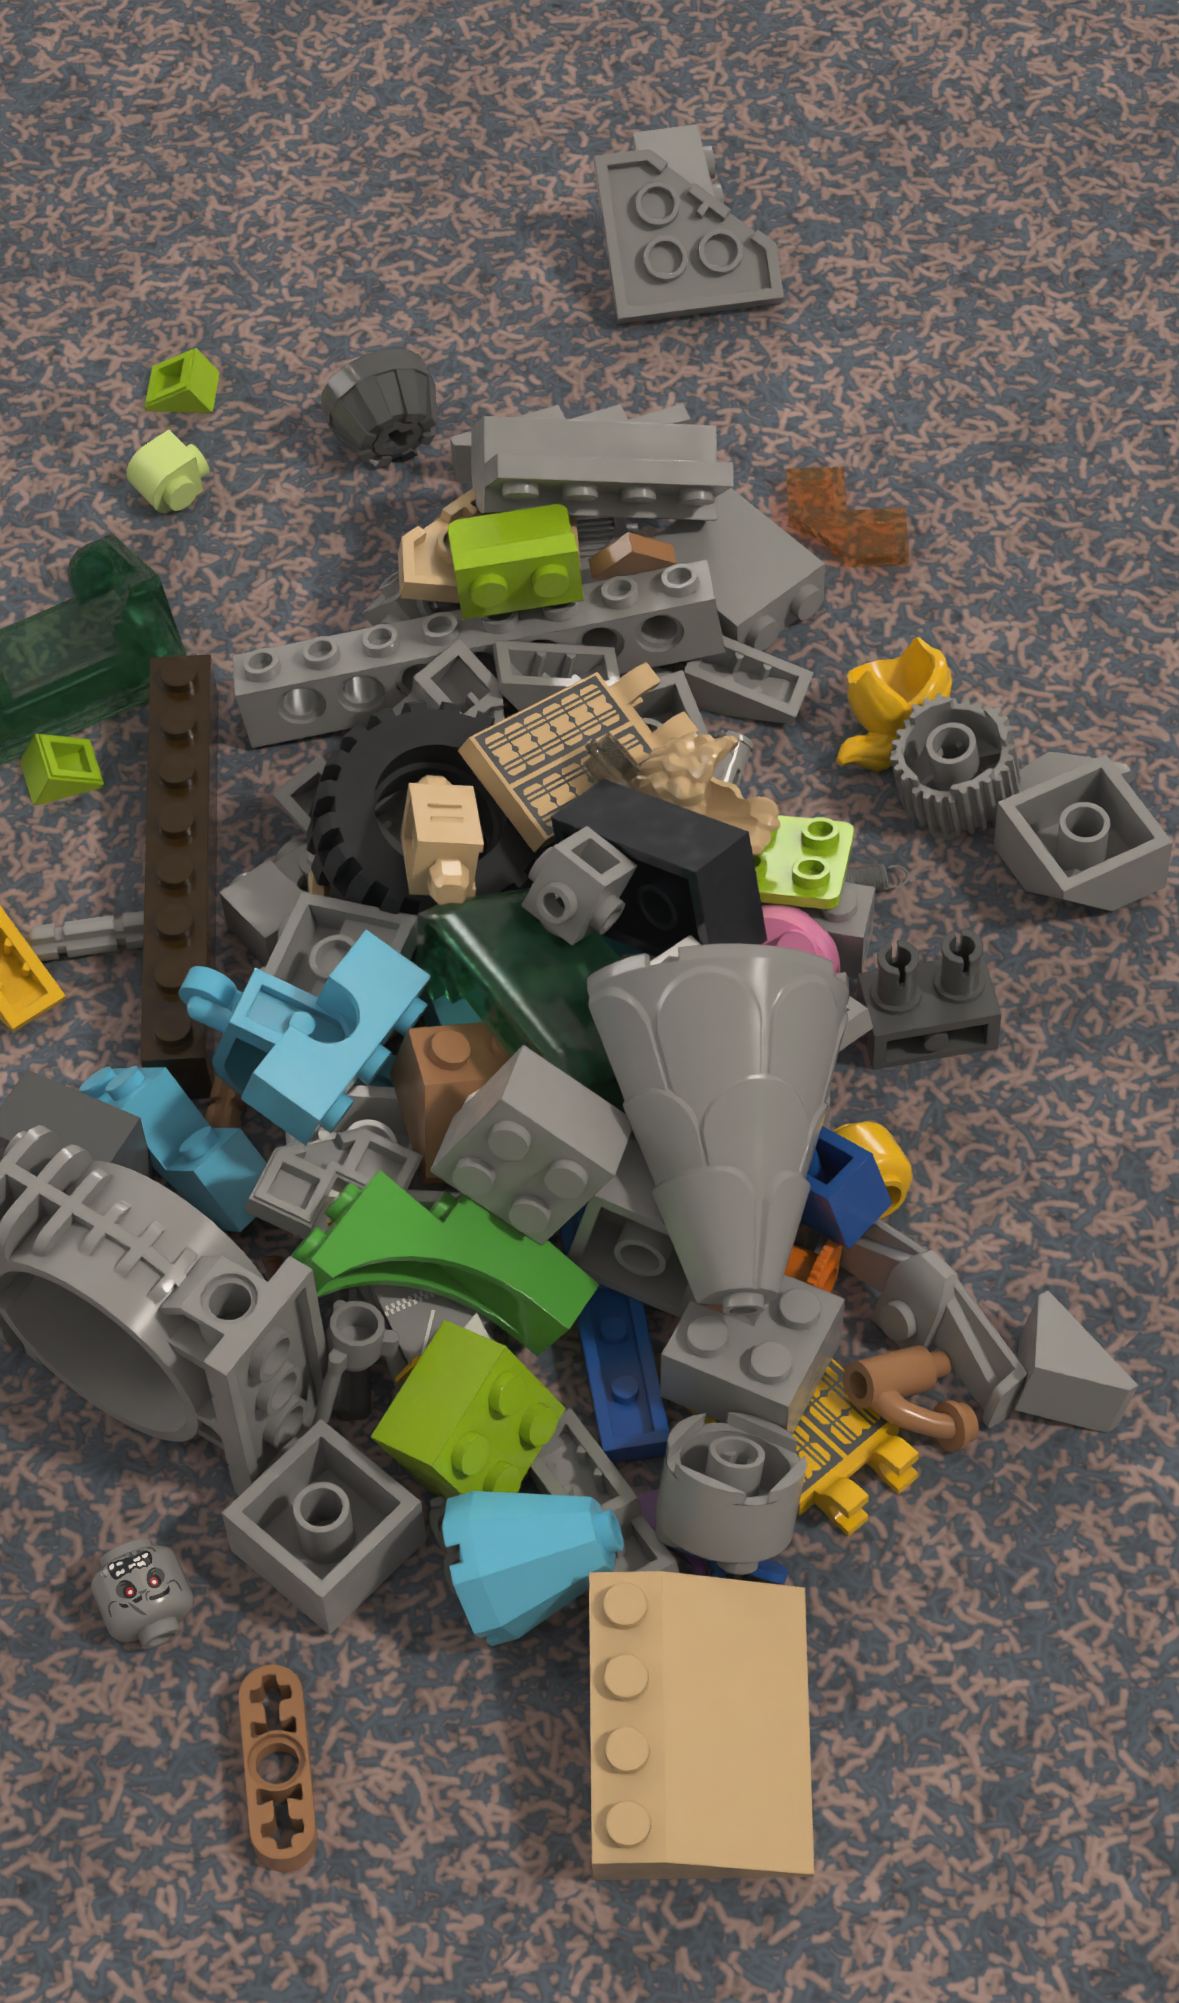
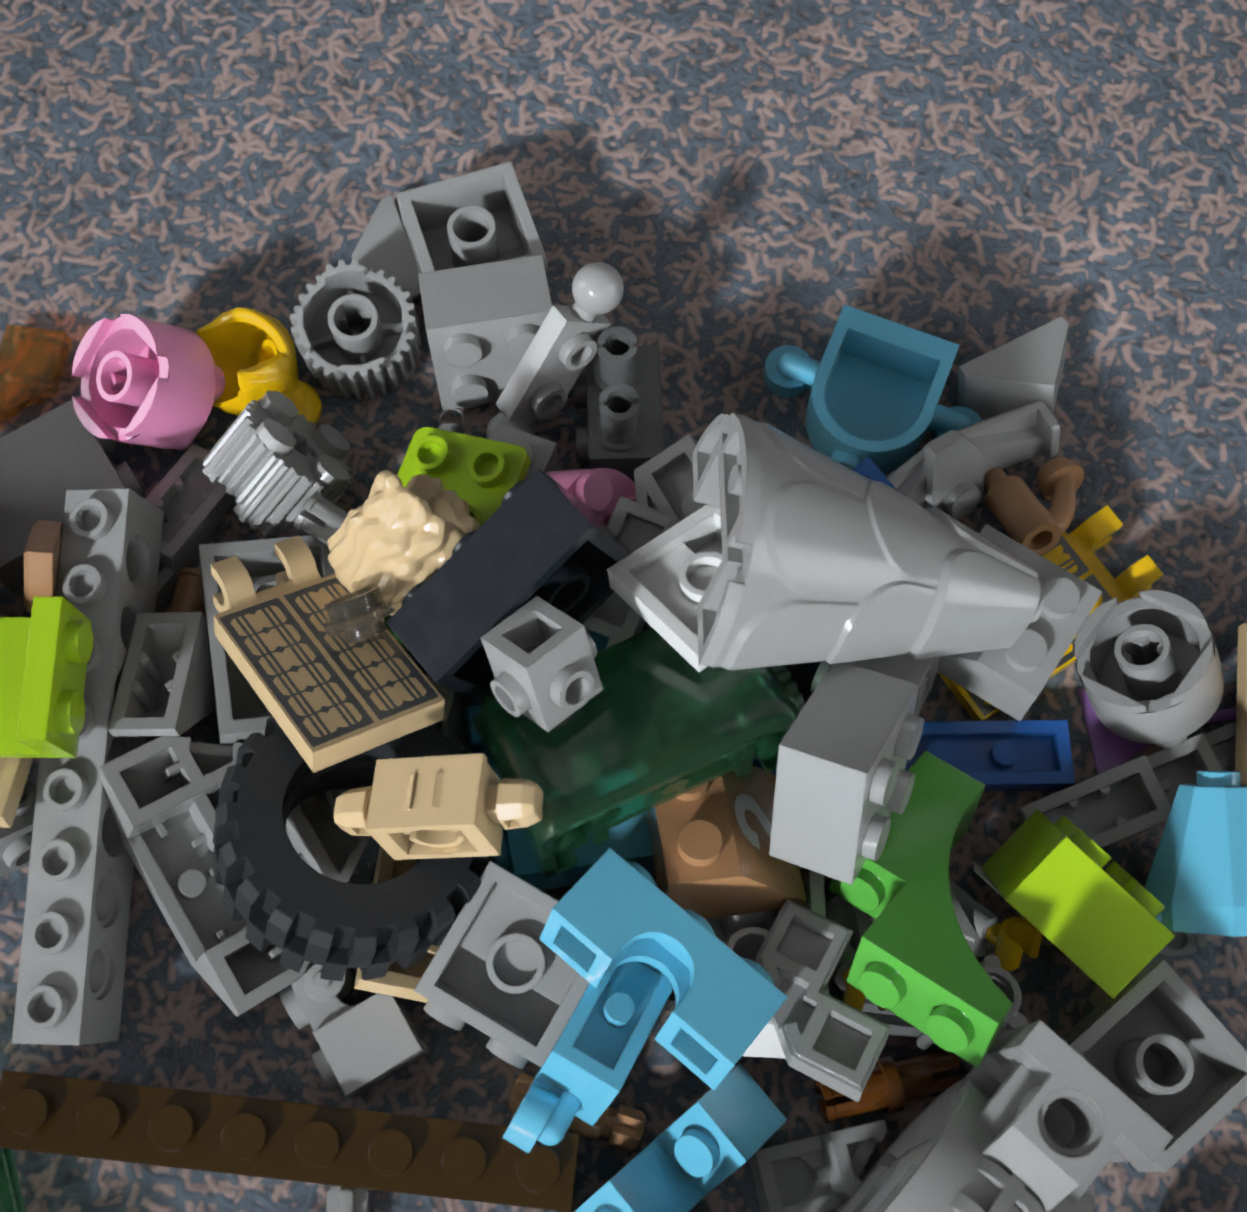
camera: 85 degrees left, 15 degrees up
(797, 728) = (277, 462): none -> light grey brick
(851, 610) = (145, 382): none -> bright pink brick
(934, 907) = (559, 350): none -> light grey plate
(974, 863) = (482, 325): none -> light grey brick
(1008, 1227) = (871, 390): none -> medium azure piece

